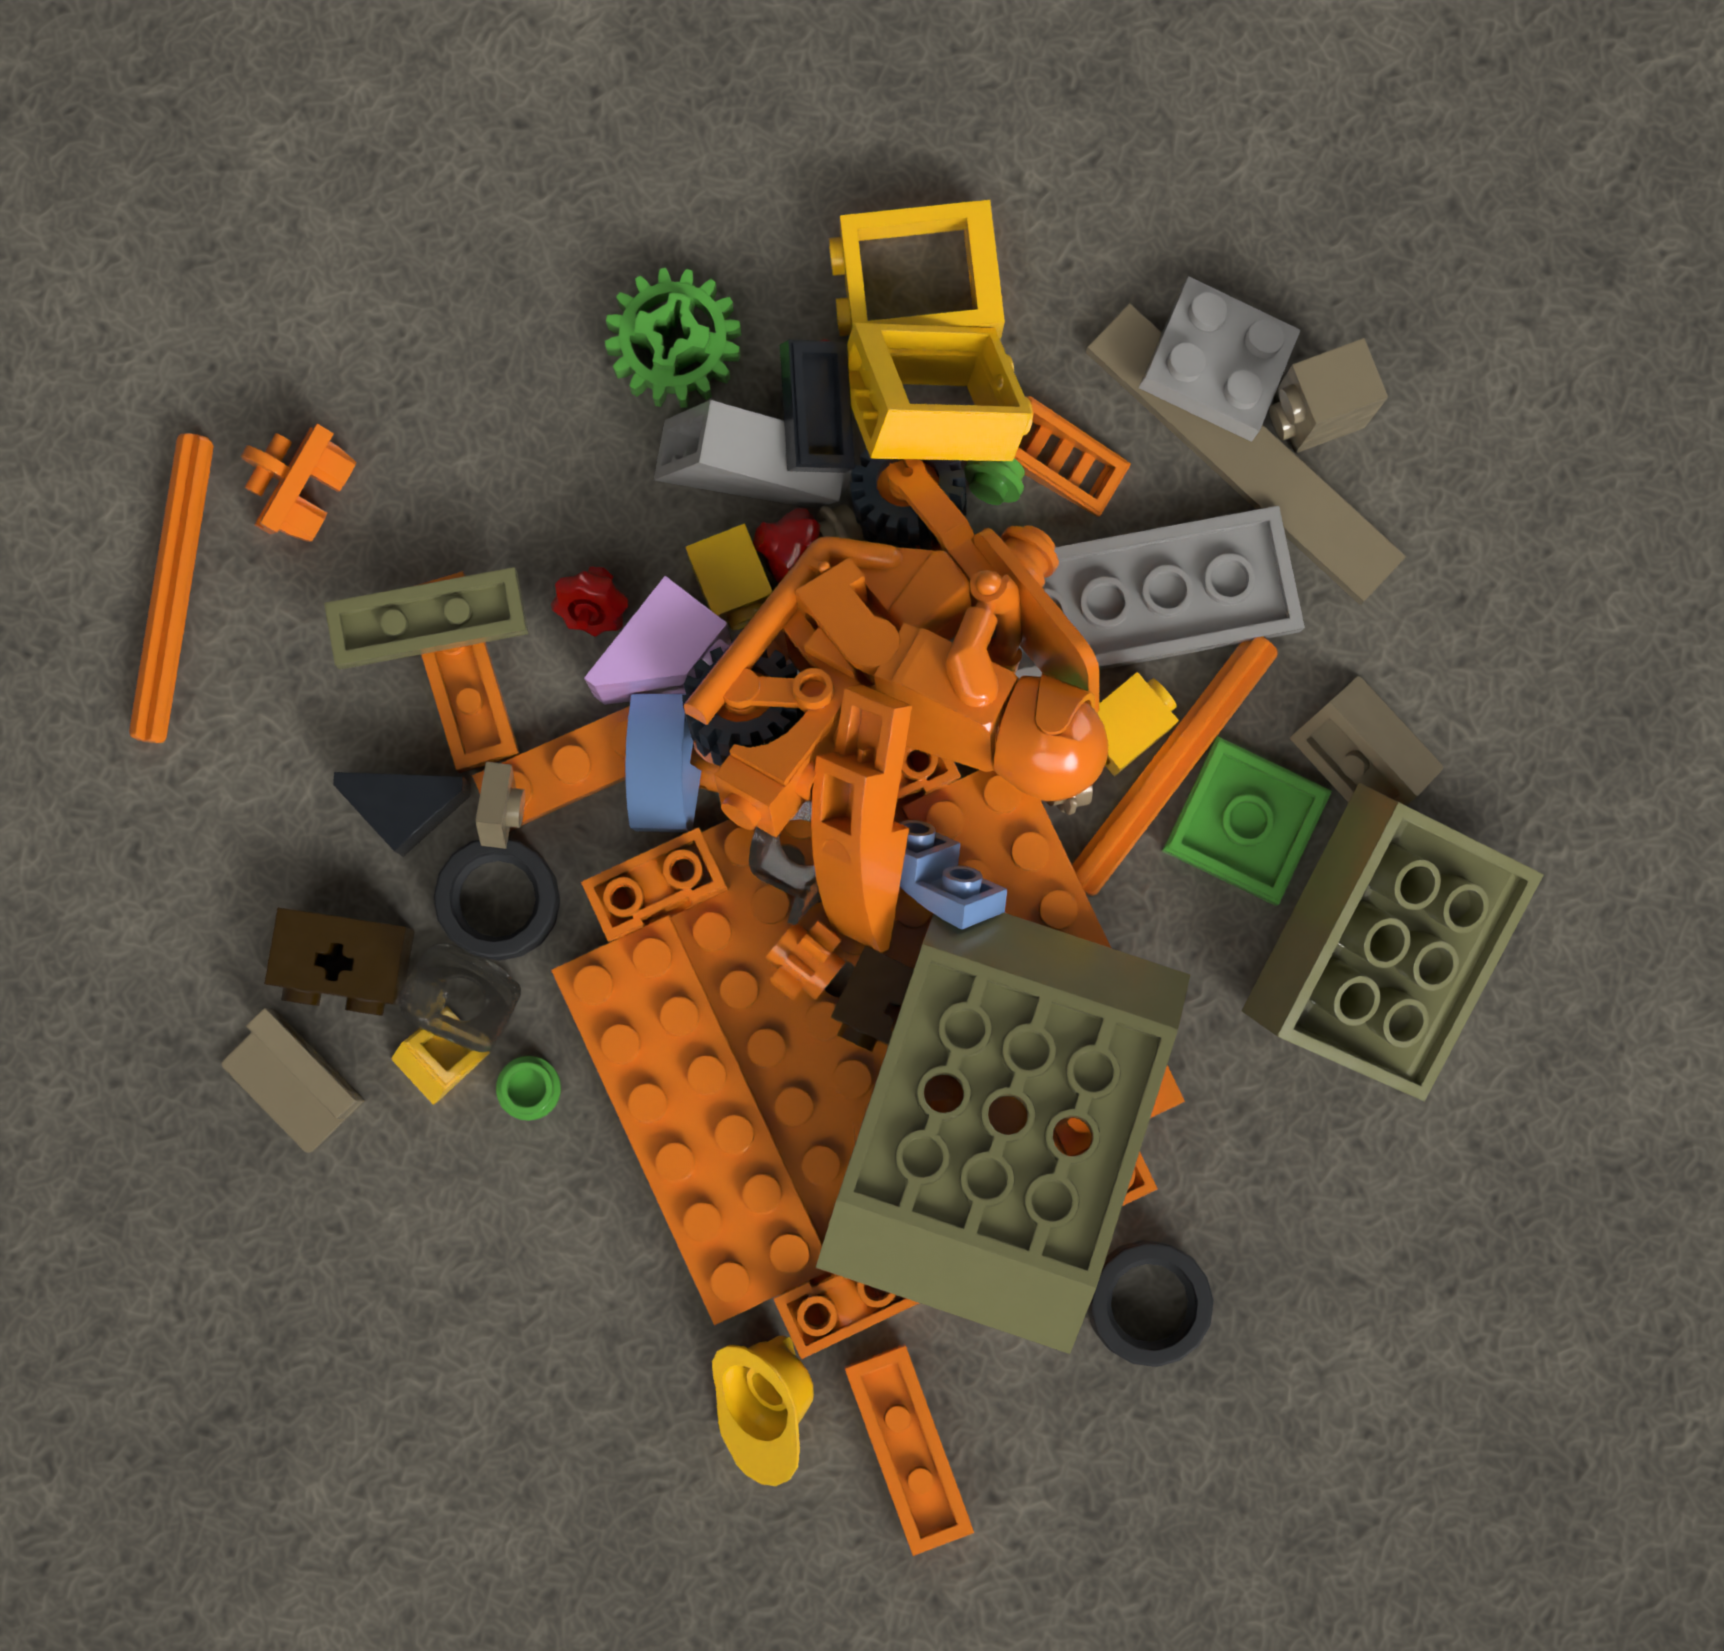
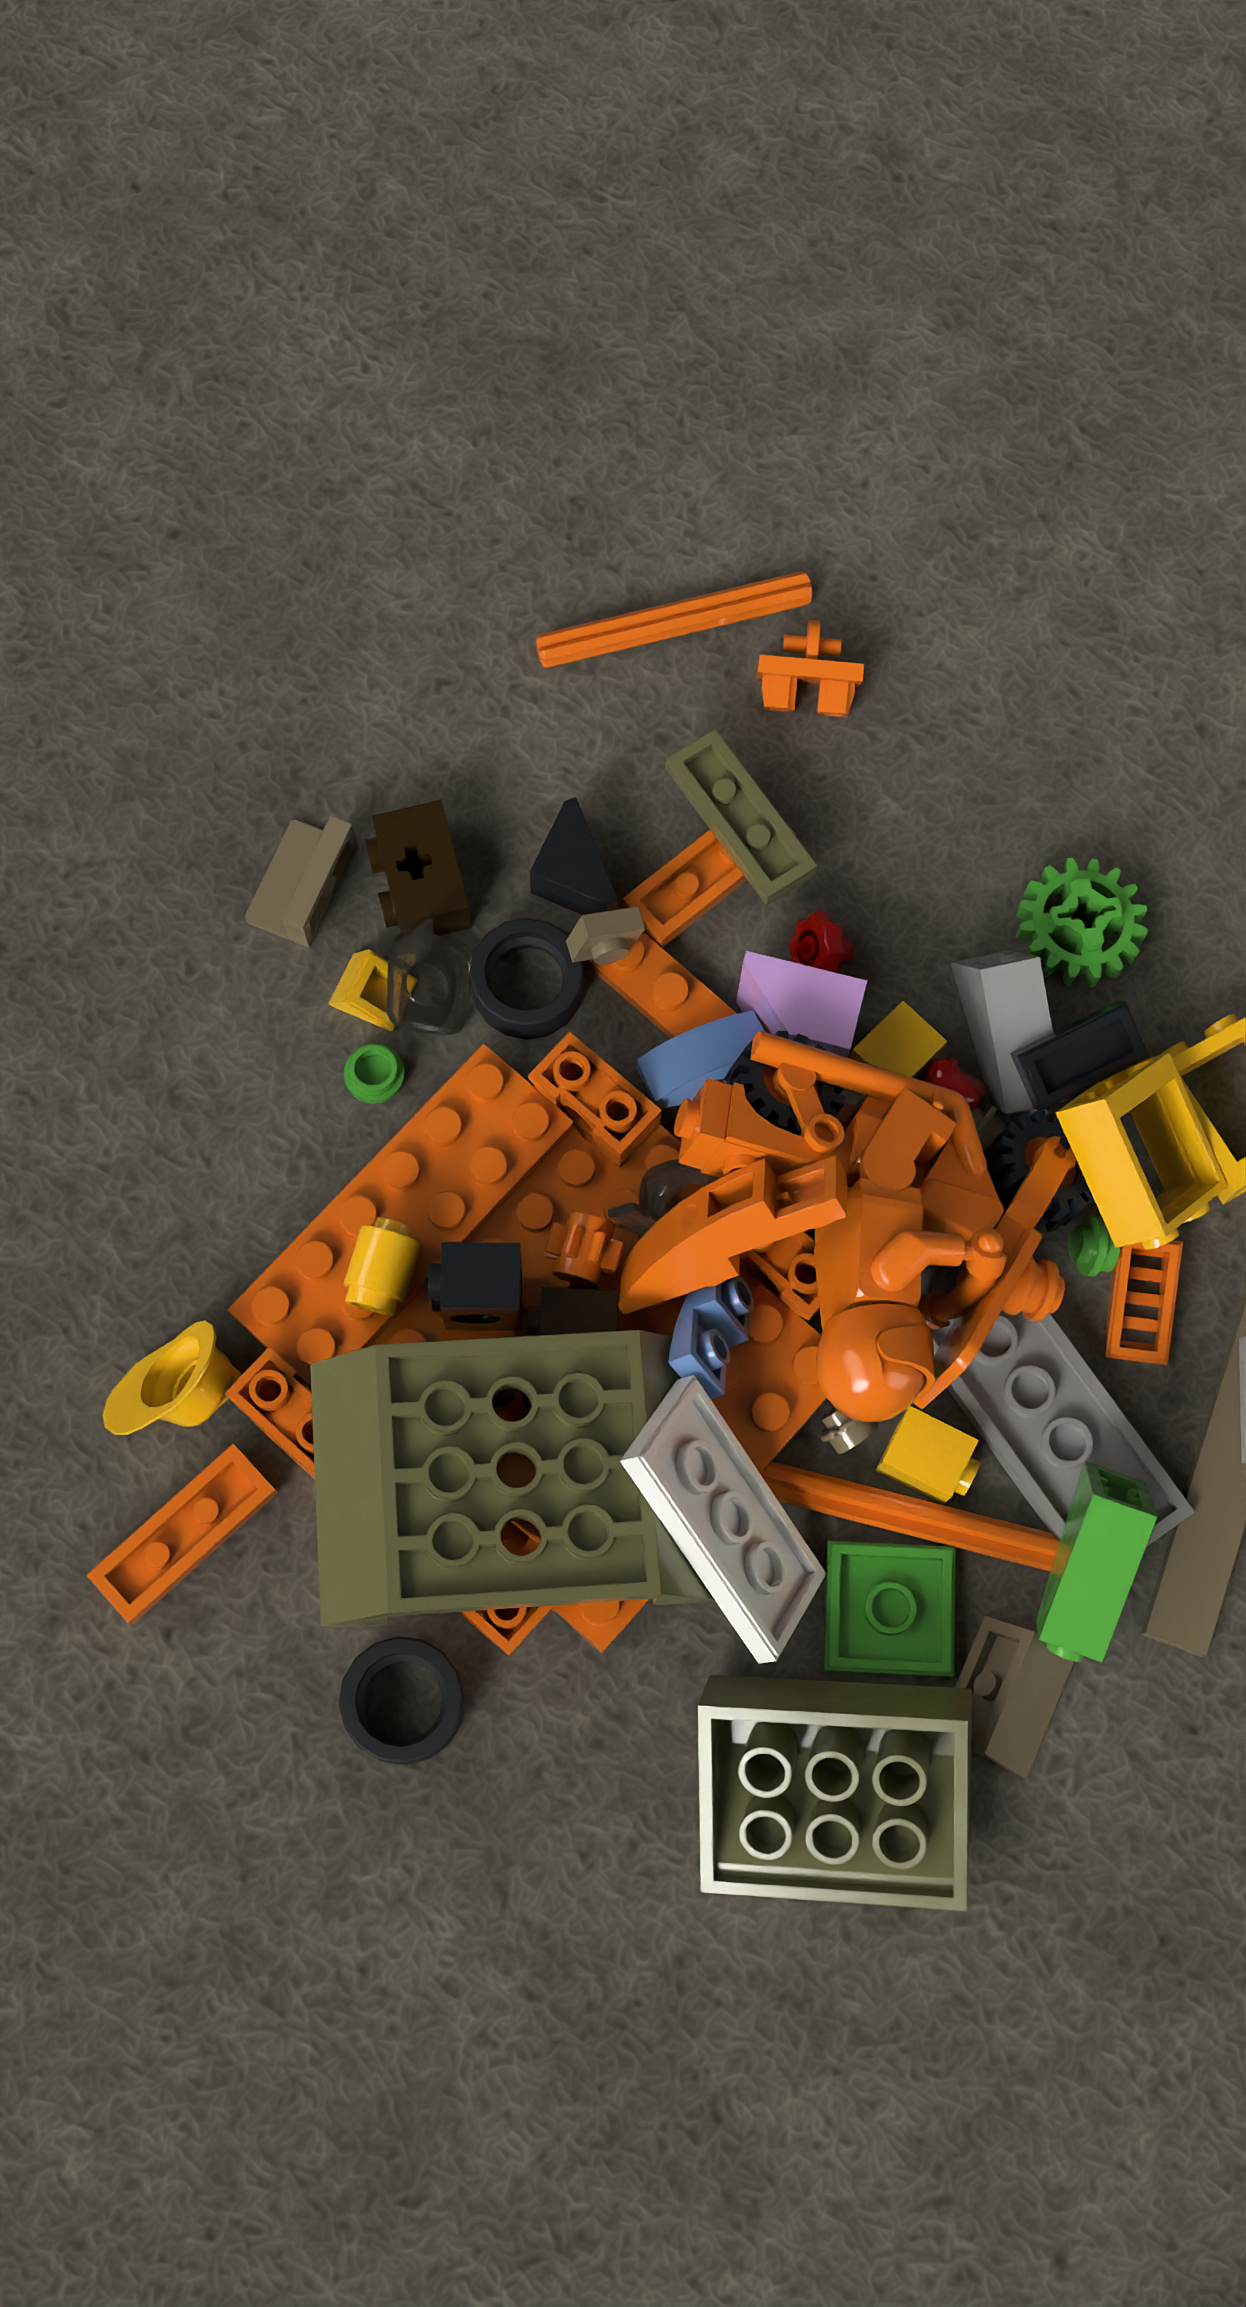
camera: 70 degrees right, 10 degrees down
(744, 1161) = (381, 1266): none -> yellow brick
(807, 1076) = (477, 1286): none -> black brick
(1119, 939) = (724, 1518): none -> white tile
(1292, 617) = (1095, 1563): none -> bright green slope

